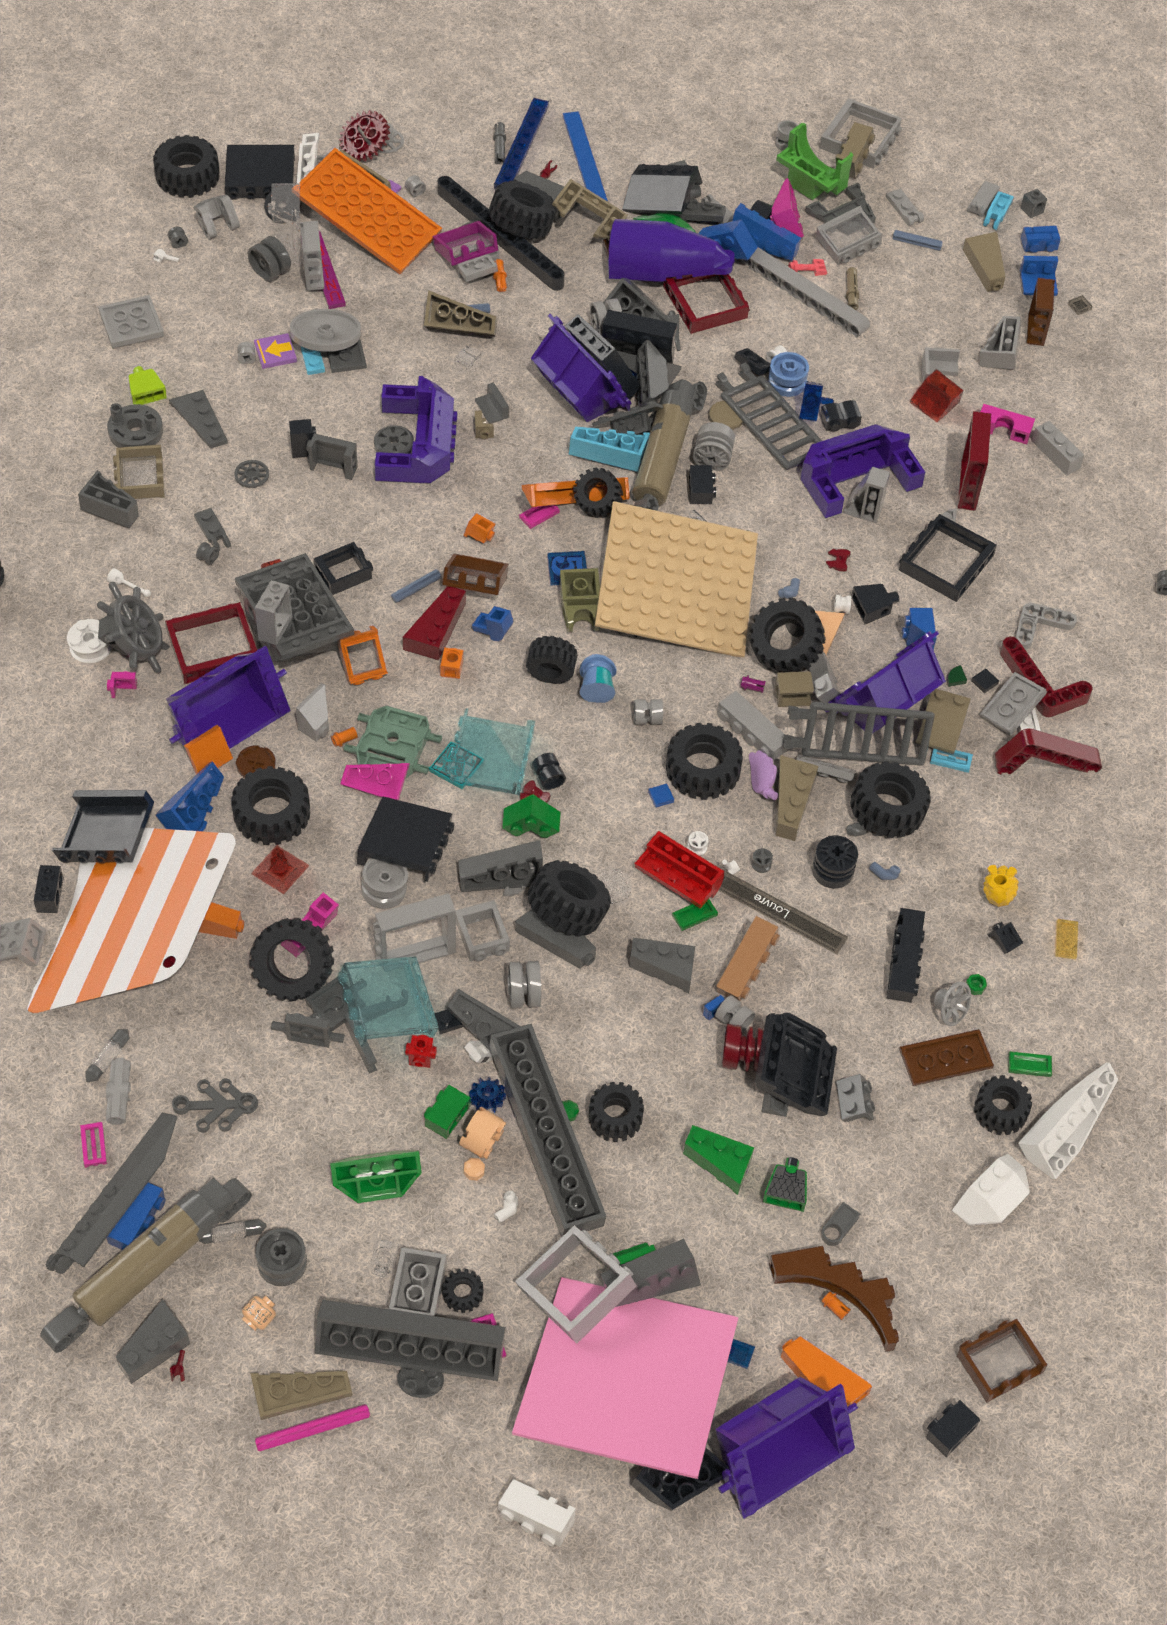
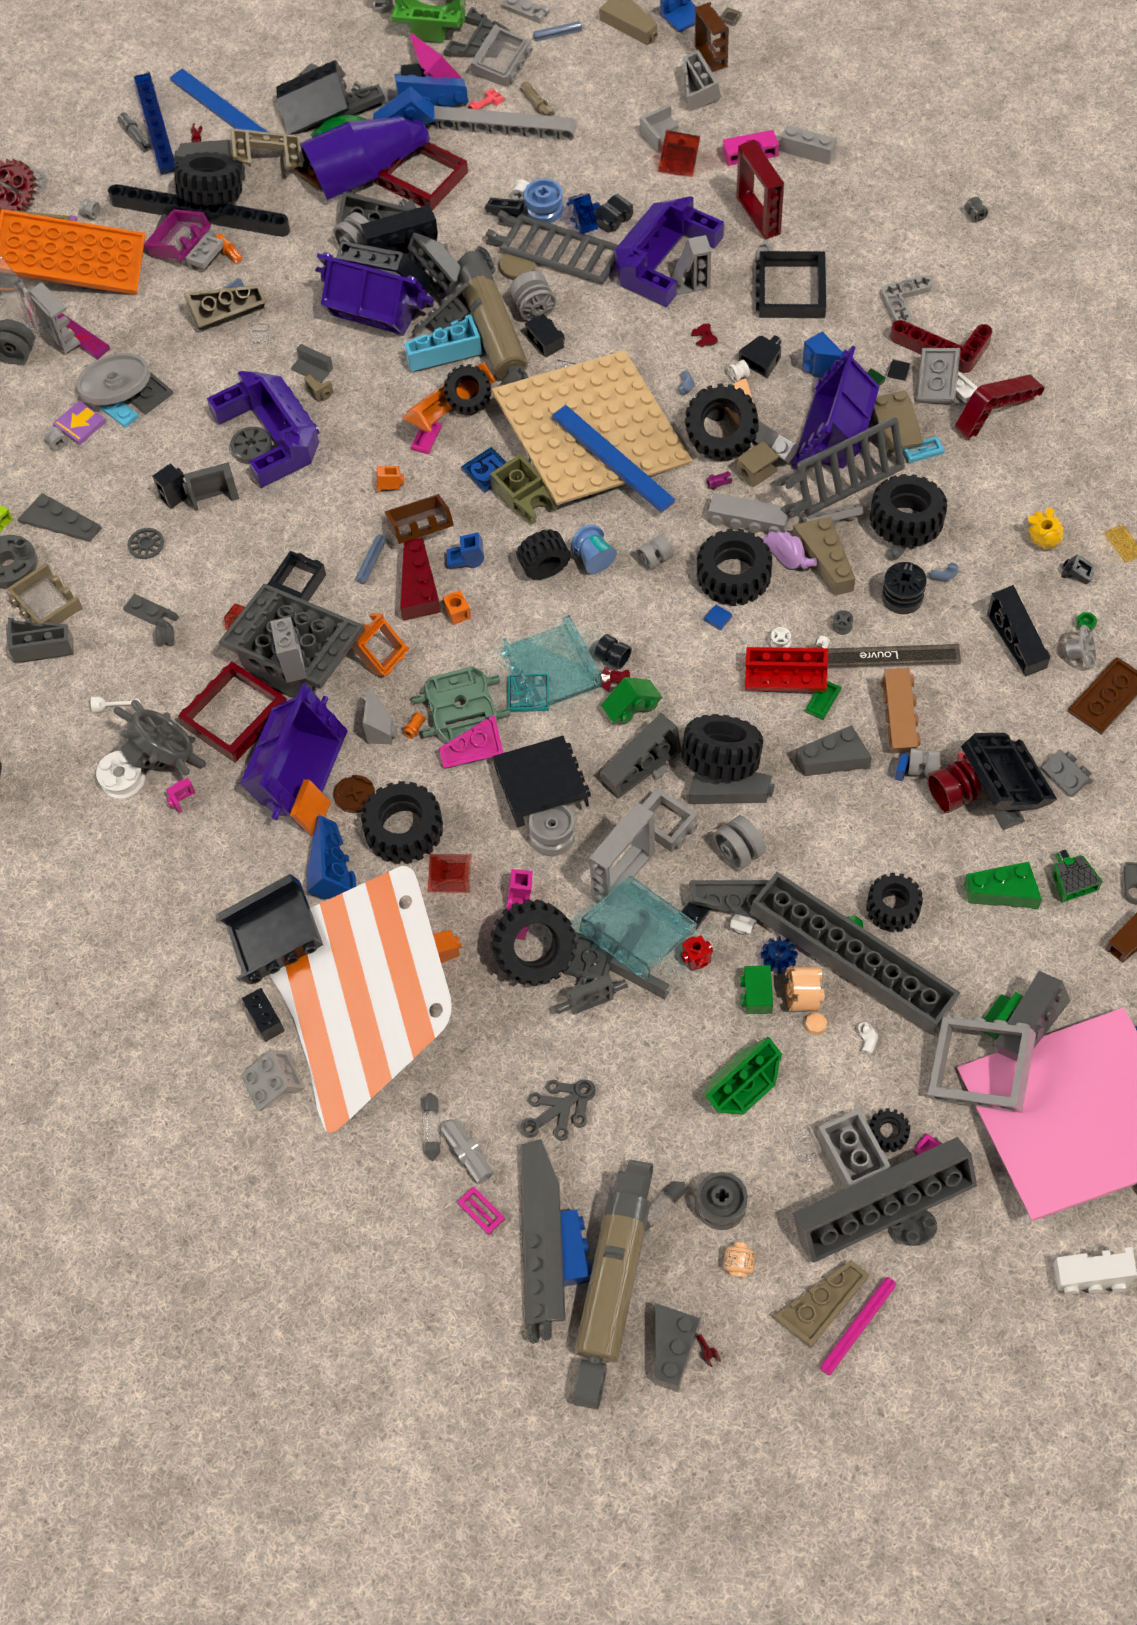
camera: 25 degrees left, 5 degrees up
(671, 615) = (613, 458): none -> blue tile

